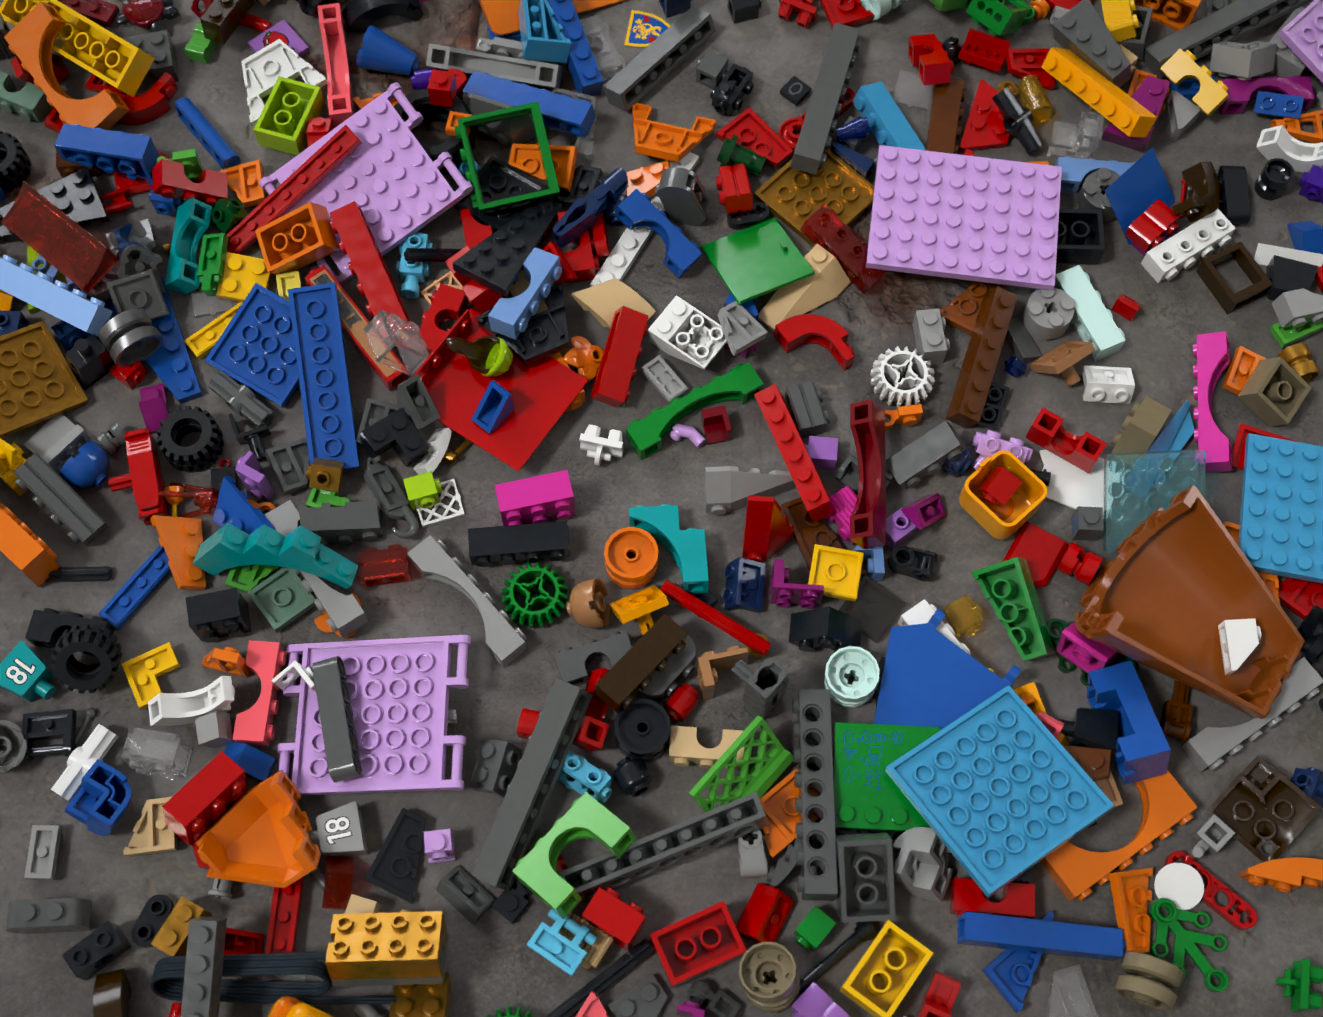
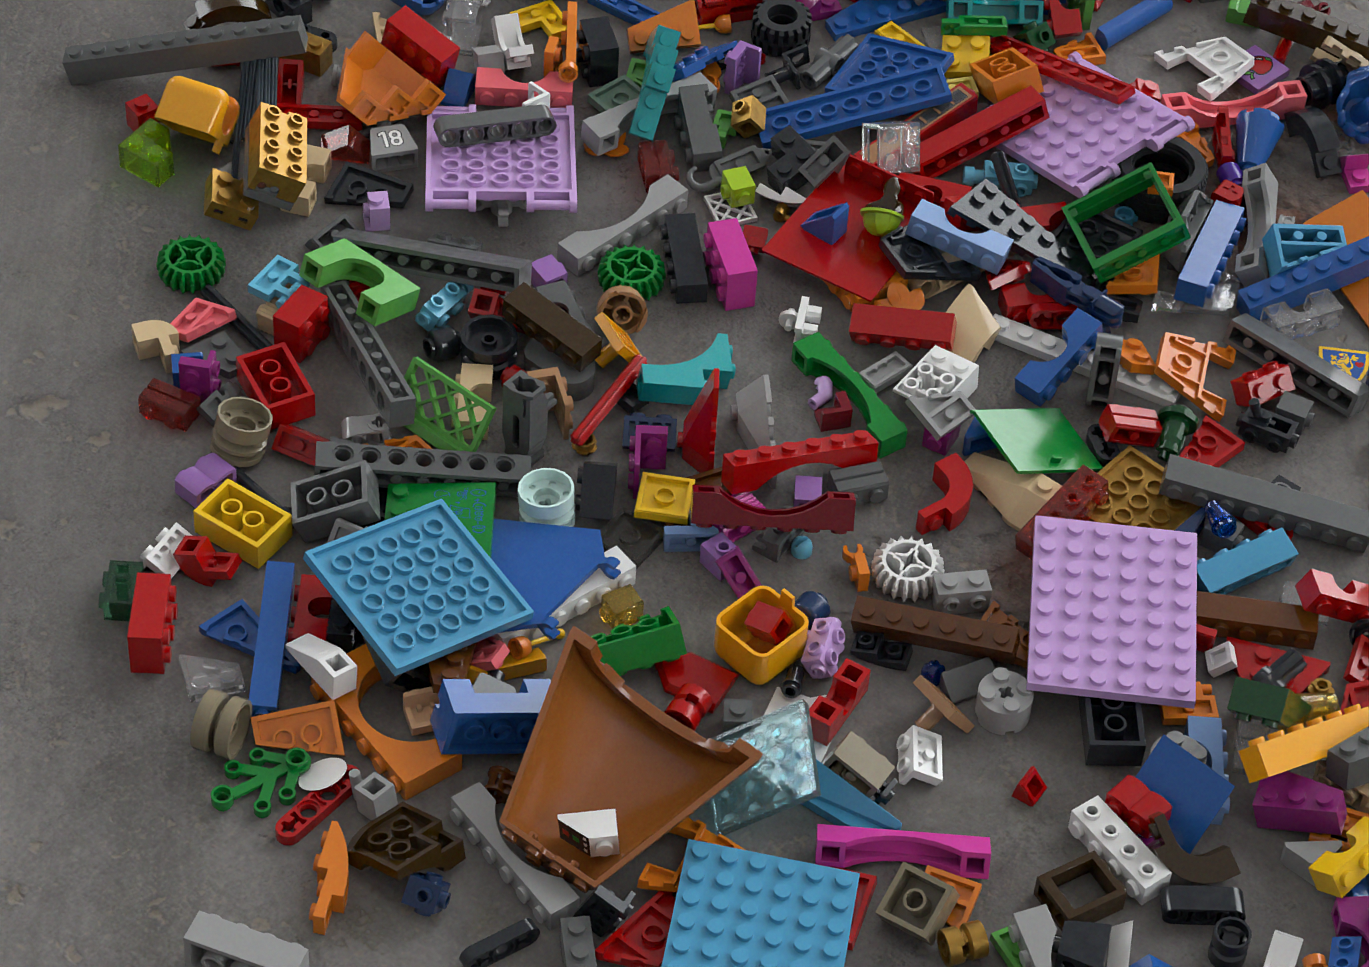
camera: 85 degrees right, 20 degrees down
(186, 640) = (568, 39): none -> orange plate
(203, 497) = (718, 36): clear red plant -> none
(287, 115) = (1169, 68): lime brick -> none
(378, 78) = (1222, 137): none -> red wing
(442, 88) = (1198, 162): red brick -> none
(488, 479) = (756, 238): none -> red bracket
(536, 673) = (547, 271): none -> medium lavender brick
(631, 558) = (672, 336): orange wheel -> none
(686, 85) = (1263, 383): none -> red brick
(813, 929) = (284, 472): green brick -> none
(915, 563) = (682, 567): black piece -> none
(925, 455) = (806, 571): dark grey brick -> none
(986, 149) = (1221, 659): none -> white plate
(1076, 110) = (1266, 703): none -> dark green slope
(1078, 883) = (325, 664): none -> white slope
(1090, 315) = (1011, 742): light aqua brick -> none
(1297, 985) = (212, 866): green hips -> none

